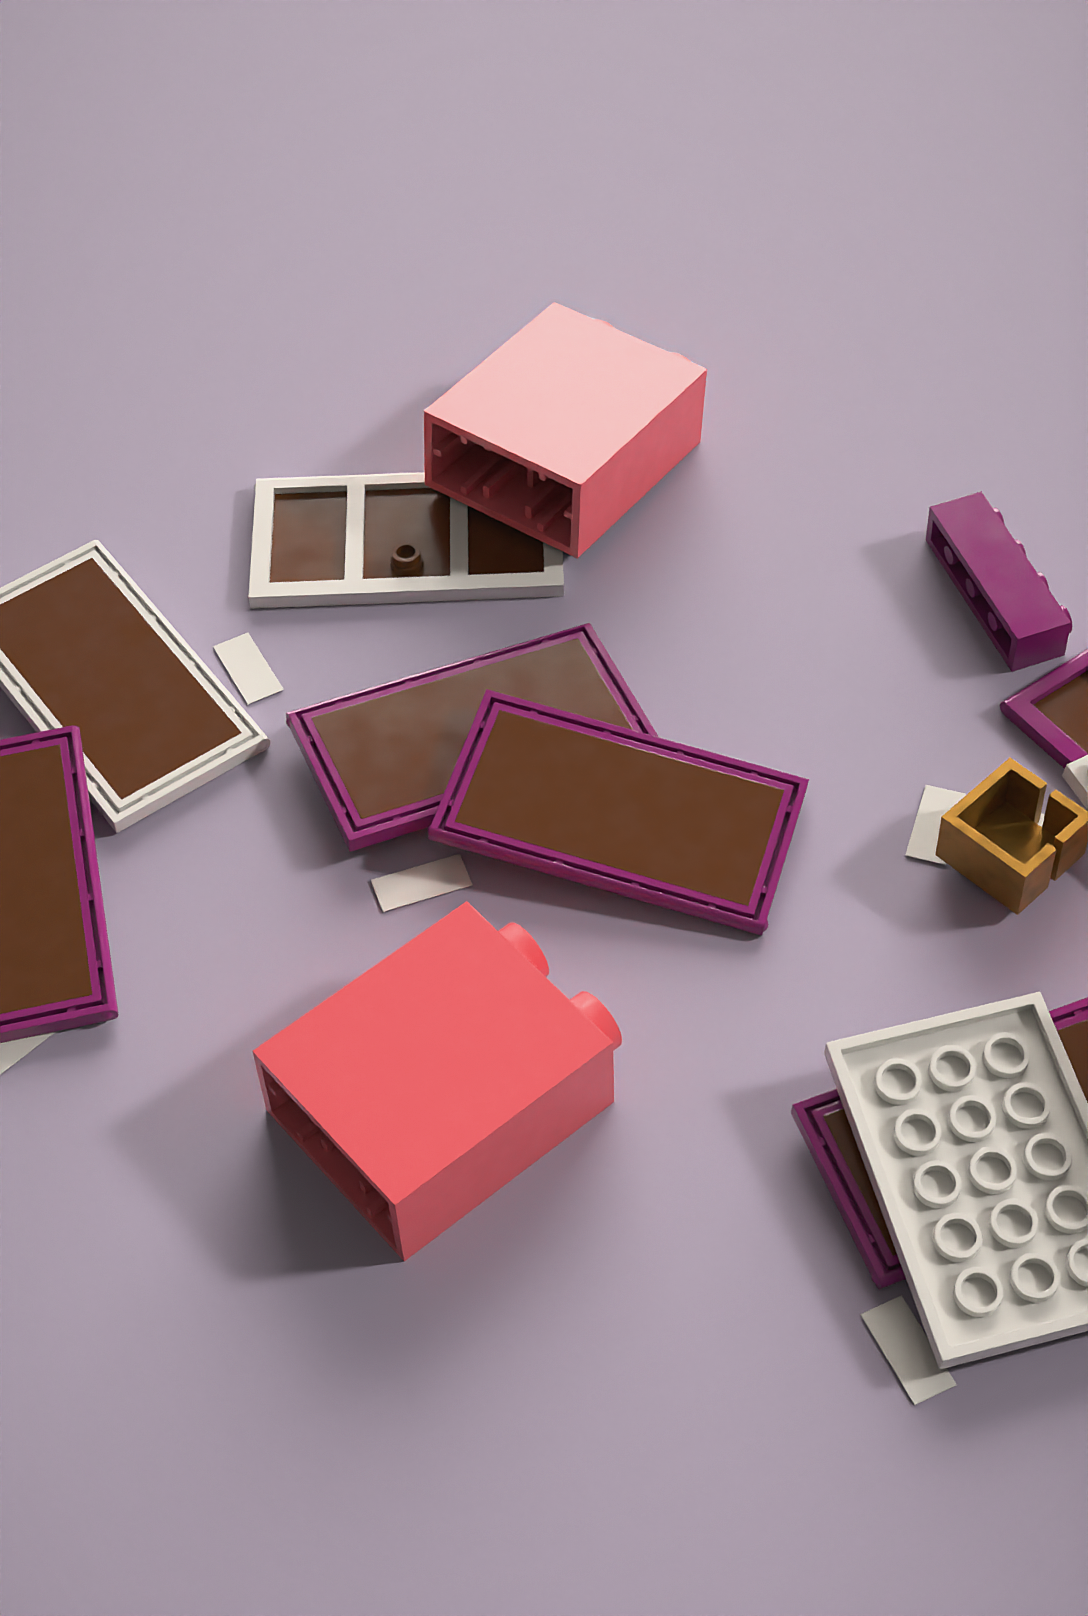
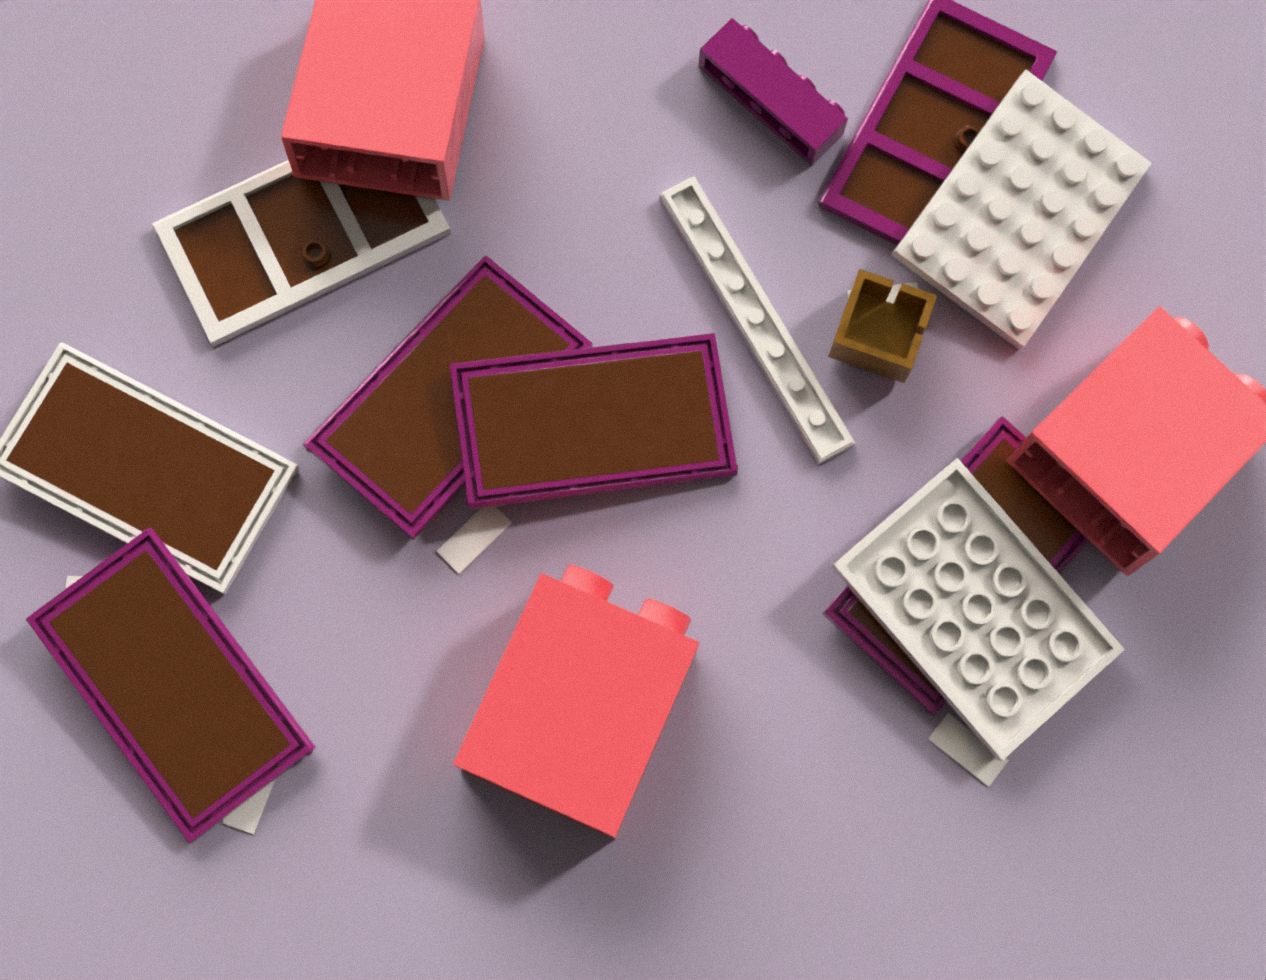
camera: 30 degrees left, 25 degrees up
(248, 668) = (242, 403): white sticker -> none
(869, 799) = (757, 321): none -> white tile
(925, 832) = (814, 325): white sticker -> none

